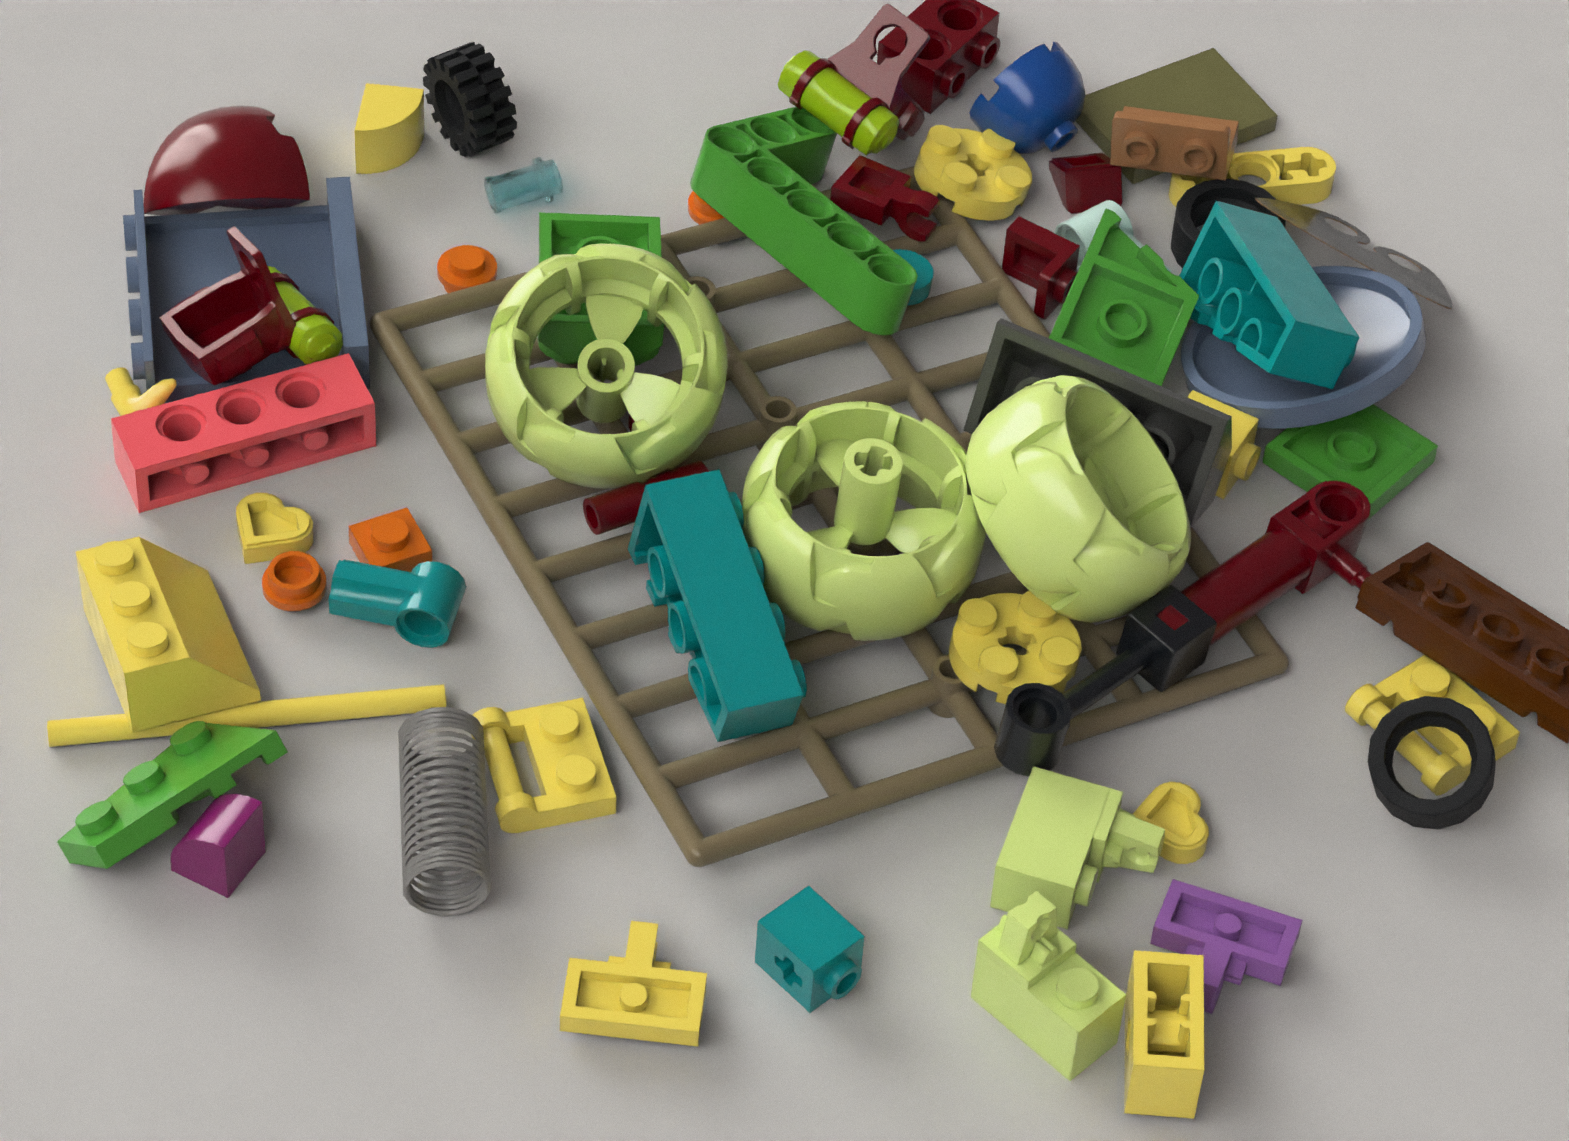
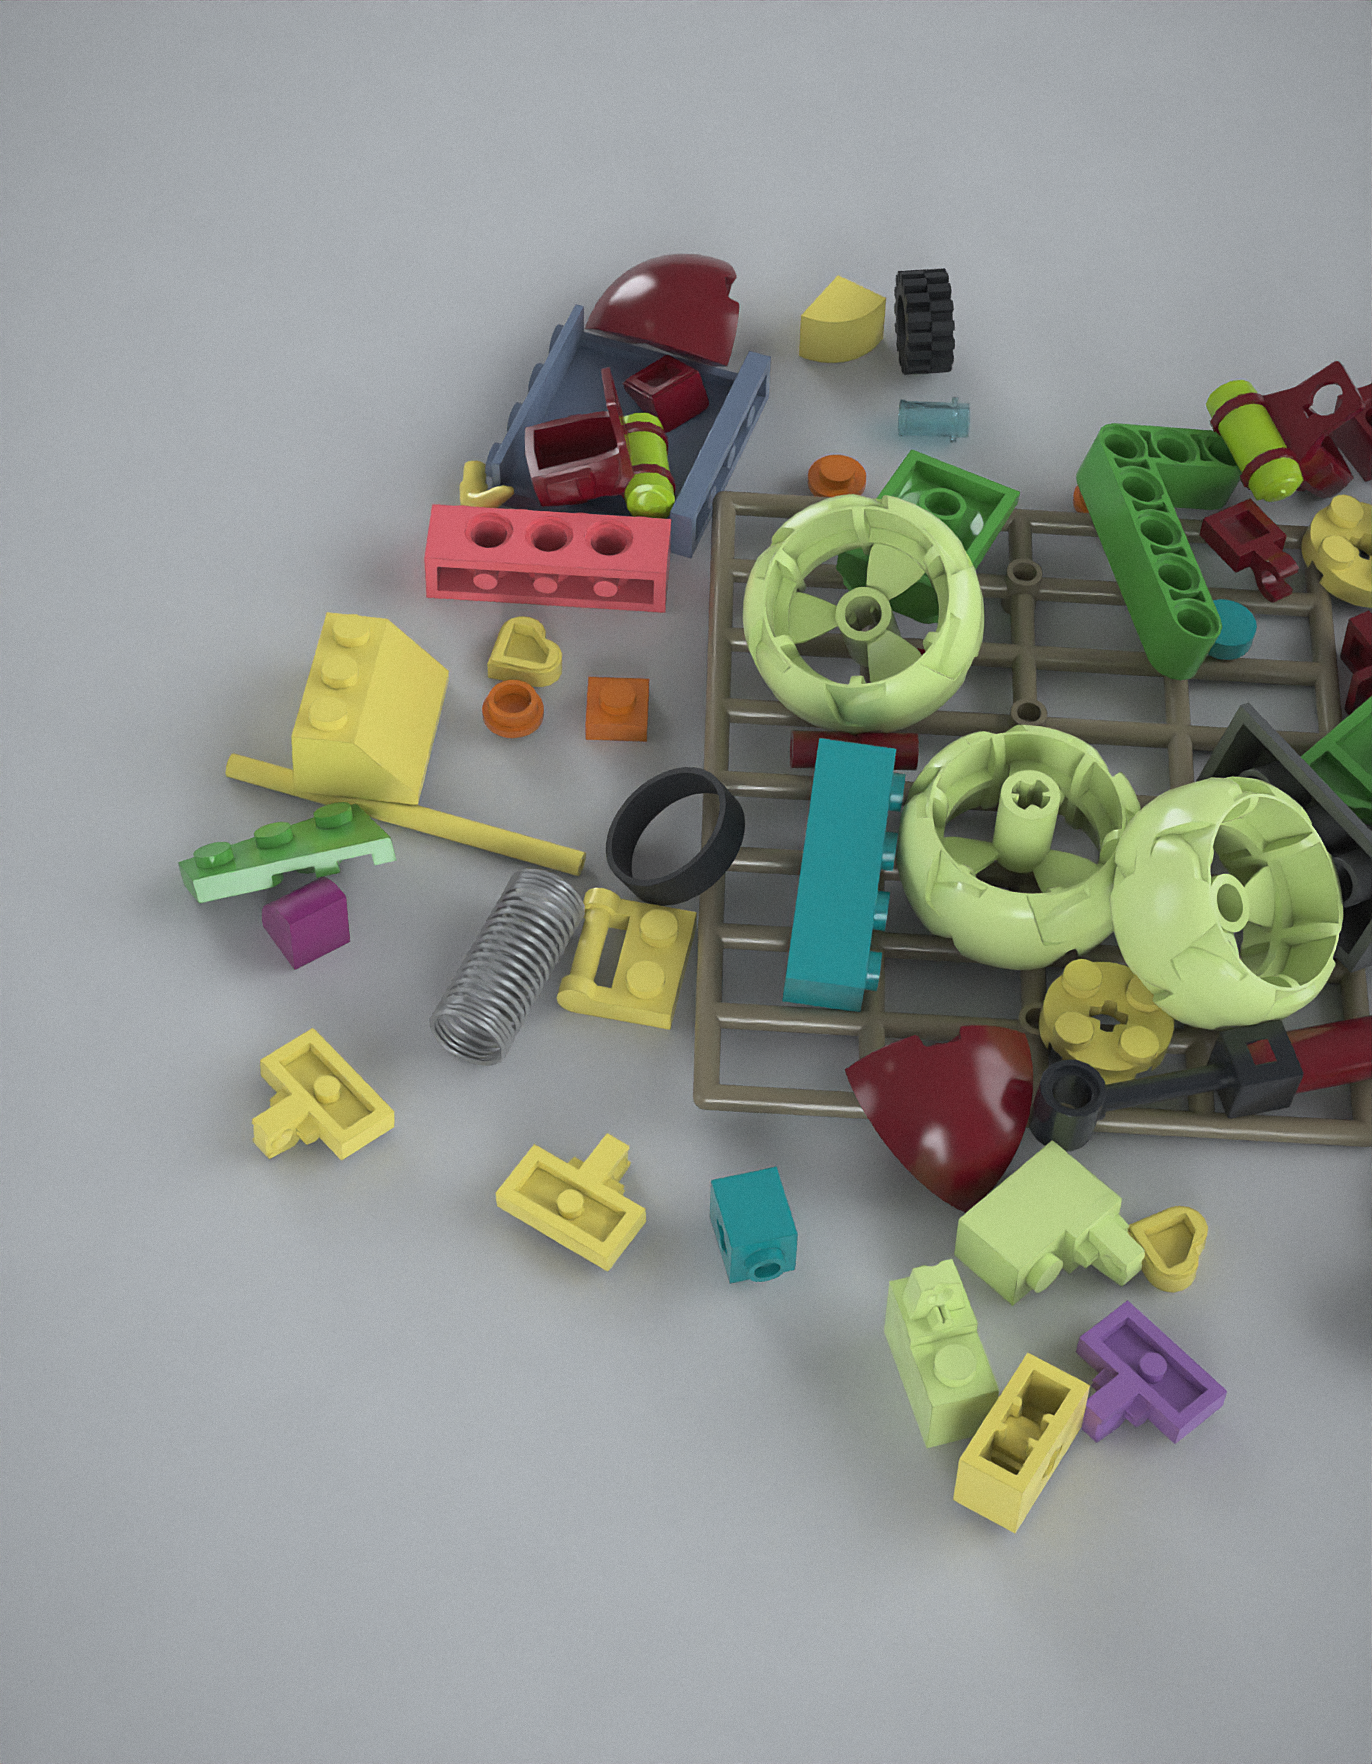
camera: 30 degrees right, 5 degrees up
(271, 233) = (668, 391): none -> dark red slope
(335, 1001) = (317, 1099): none -> light yellow hinge
(415, 602) = (601, 767): teal piece -> none
(489, 601) = (645, 805): none -> black tyre
(931, 771) = (950, 1107): none -> dark red brick

